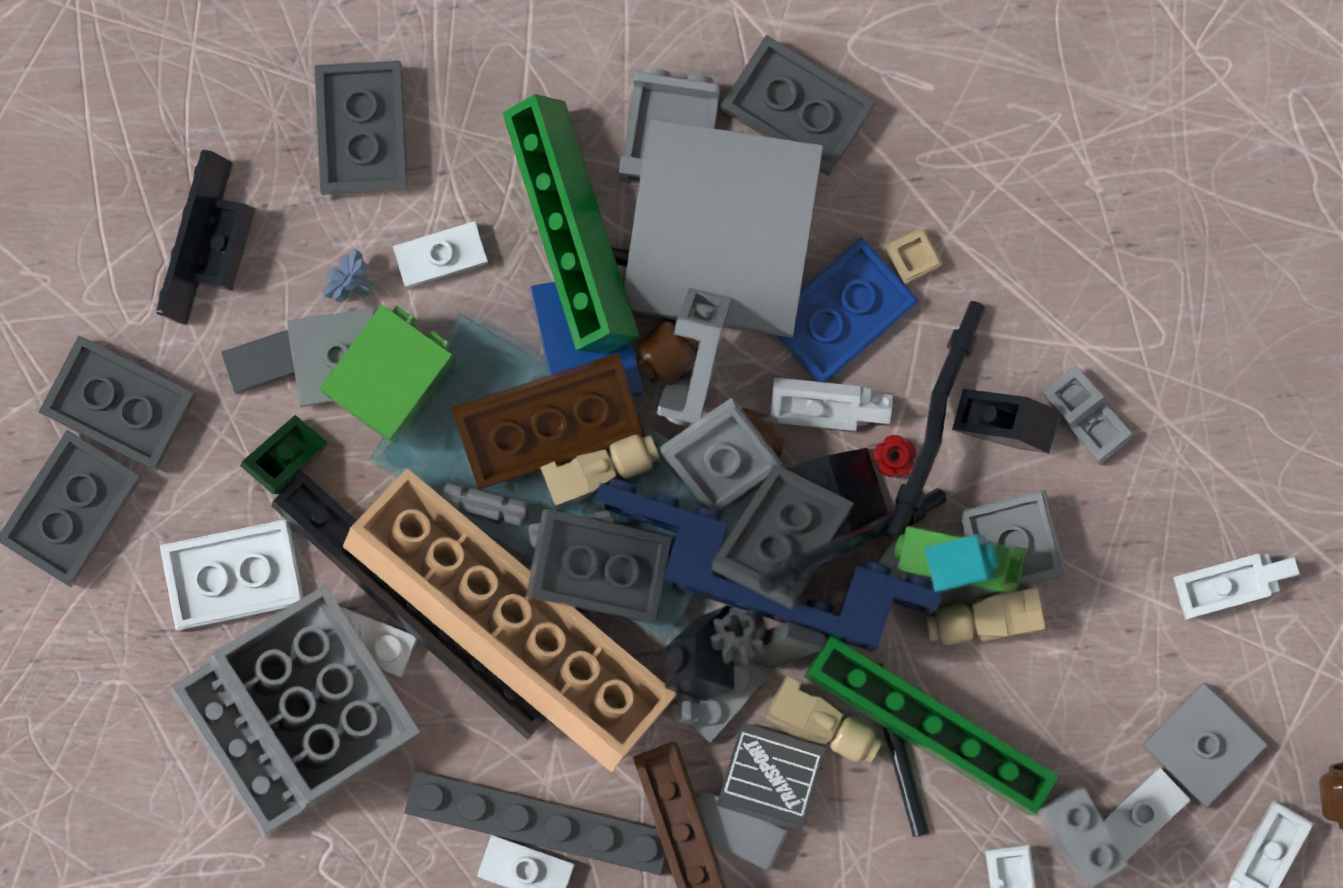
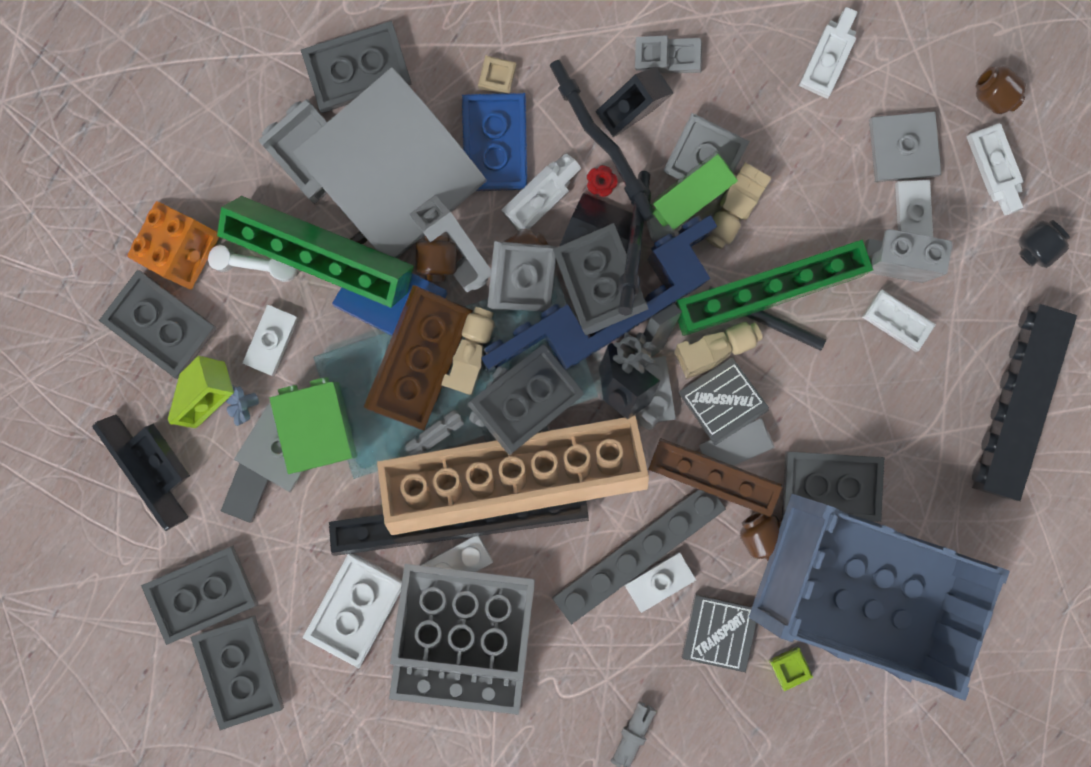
camera: 55 degrees left, 5 degrees up
(284, 455) = (310, 525): dark green slope -> none
(327, 228) = (199, 392): none -> lime slope
(455, 74) = (173, 245): none -> orange bracket
(484, 137) = (225, 259): none -> white bar
(962, 562) = (704, 187): teal brick -> none

